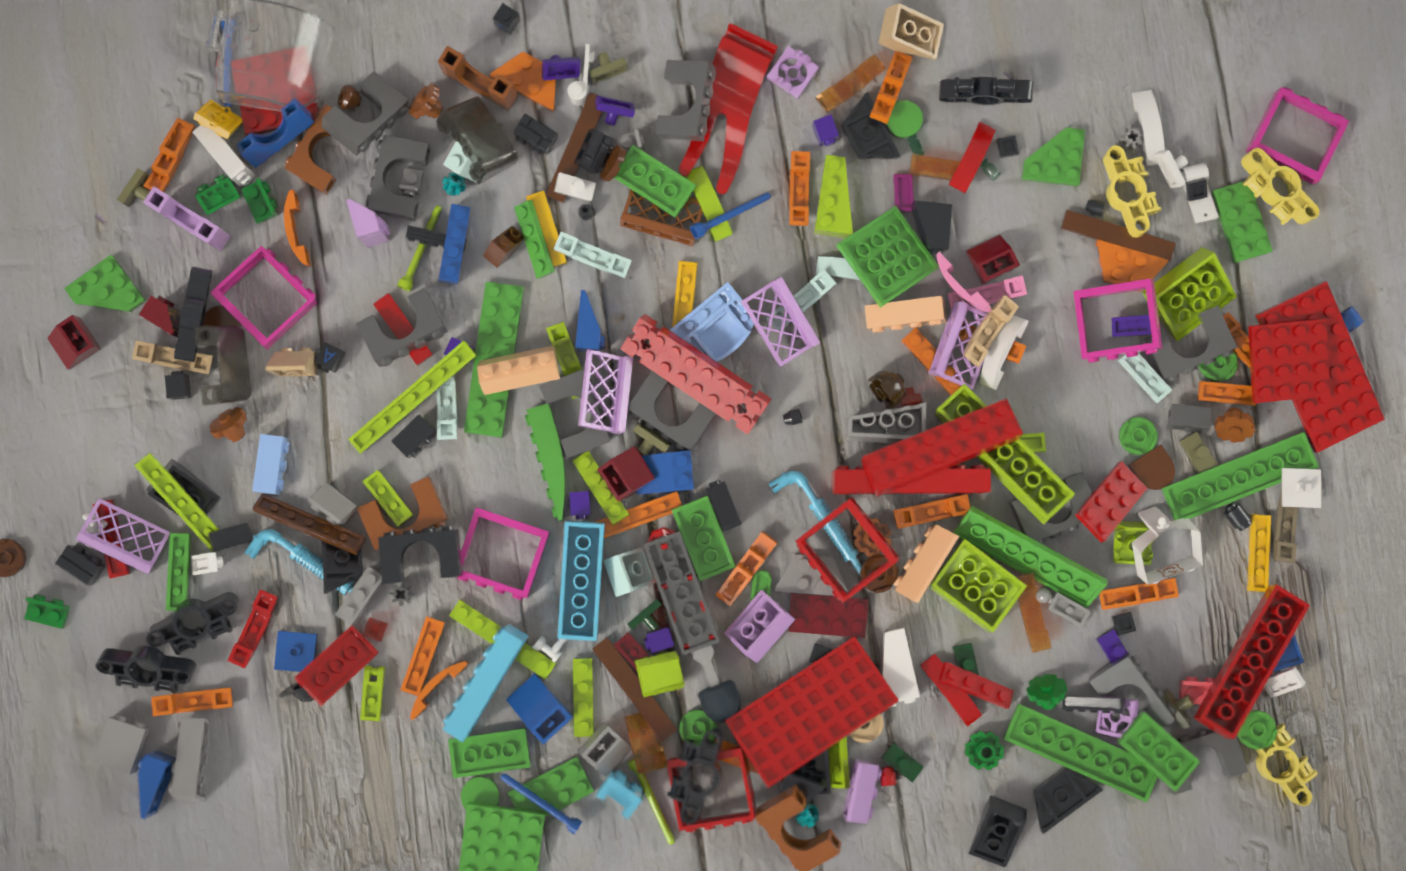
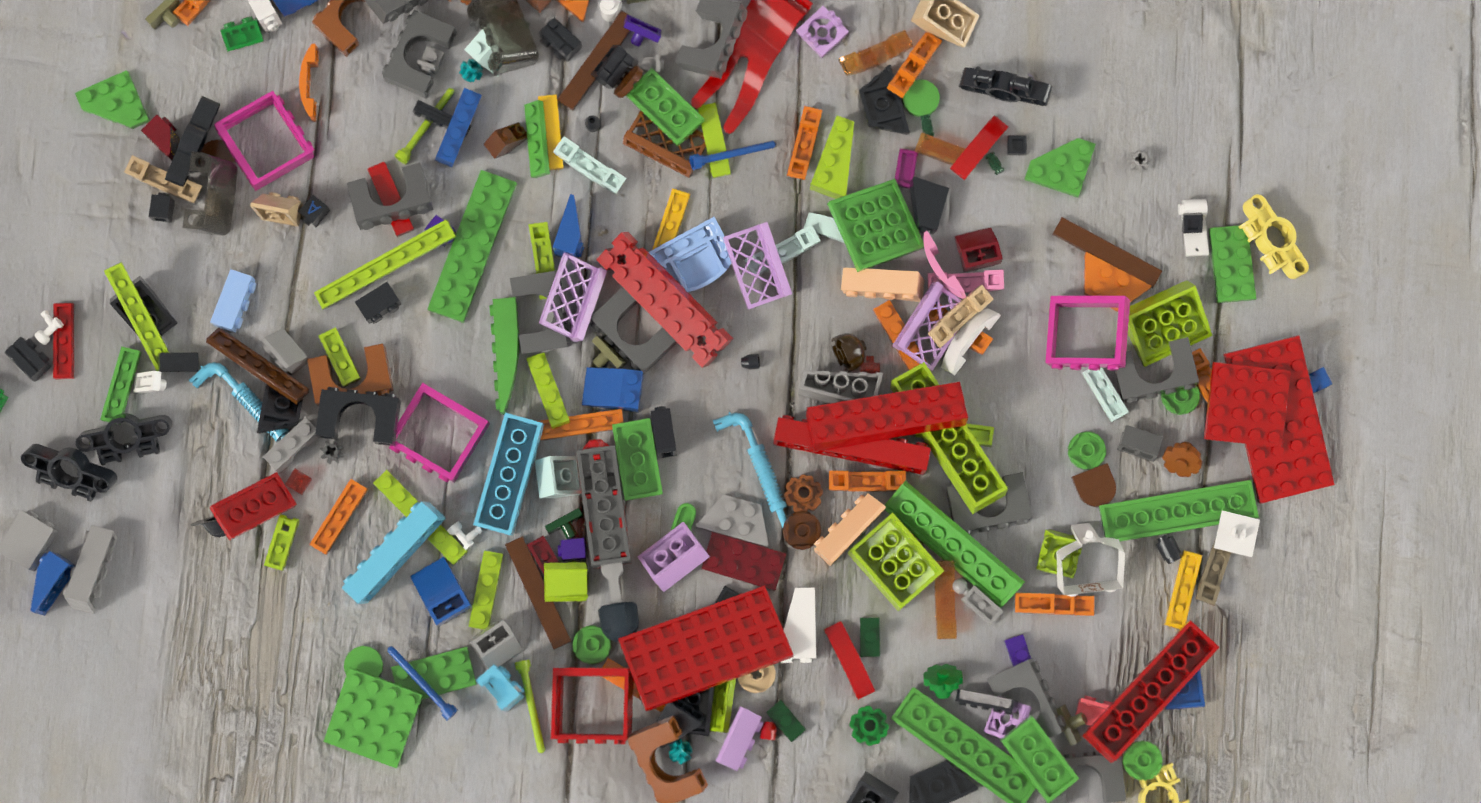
camera: 15 degrees right, 5 degrees down
(73, 341) = (71, 144): dark red slope -> none
(114, 551) = (62, 349): lavender fence -> none
(187, 219) = (218, 61): lavender arch -> none
(192, 701) = (105, 513): orange slope -> none
(229, 424) = (203, 254): dark orange plant -> none
(254, 629) = (181, 456): red slope -> none
(259, 201) = (281, 49): green bracket -> none
(294, 650) = (215, 484): blue plate -> none
(367, 225) = (379, 91): lavender slope -> none
(420, 704) = (325, 564): orange slope -> none
(447, 410) = (416, 284): light aqua slope -> none
(489, 753) = (382, 624): bright green plate -> none
(518, 370) = (492, 259): light nougat slope -> none
(574, 187) = (587, 97): white tile -> none
(580, 504) = (524, 402): dark purple brick -> none
(626, 474) = (575, 381): dark red slope -> none
(645, 746) = (536, 651): clear orange slope -> none
(682, 787) = (563, 695): black piece -> none
(746, 568) = (673, 498): orange slope -> none
(825, 131) = (842, 93): dark purple brick -> none
(826, 575) = (743, 506): red window -> none
(976, 685) = (874, 659): red plate -> none
(1095, 206) = (1090, 220): black hose -> none
(1111, 501) = (1045, 507): red plate -> none
(1123, 623) = (1034, 631): black tile -> none
(1131, 326) = (1098, 340): dark purple tile -> none
(1134, 172) = (1135, 194): light yellow piece -> none
(1150, 125) = (1160, 155): white slope -> none
(1171, 167) = (1172, 197): white tile -> none
(1197, 452) = (1142, 479): olive tile -> none
(1225, 393) = (1180, 426): orange plate -> none
(1284, 682) = (1179, 720): white tile -> none
(1320, 111) = (1329, 172): dark pink window -> none

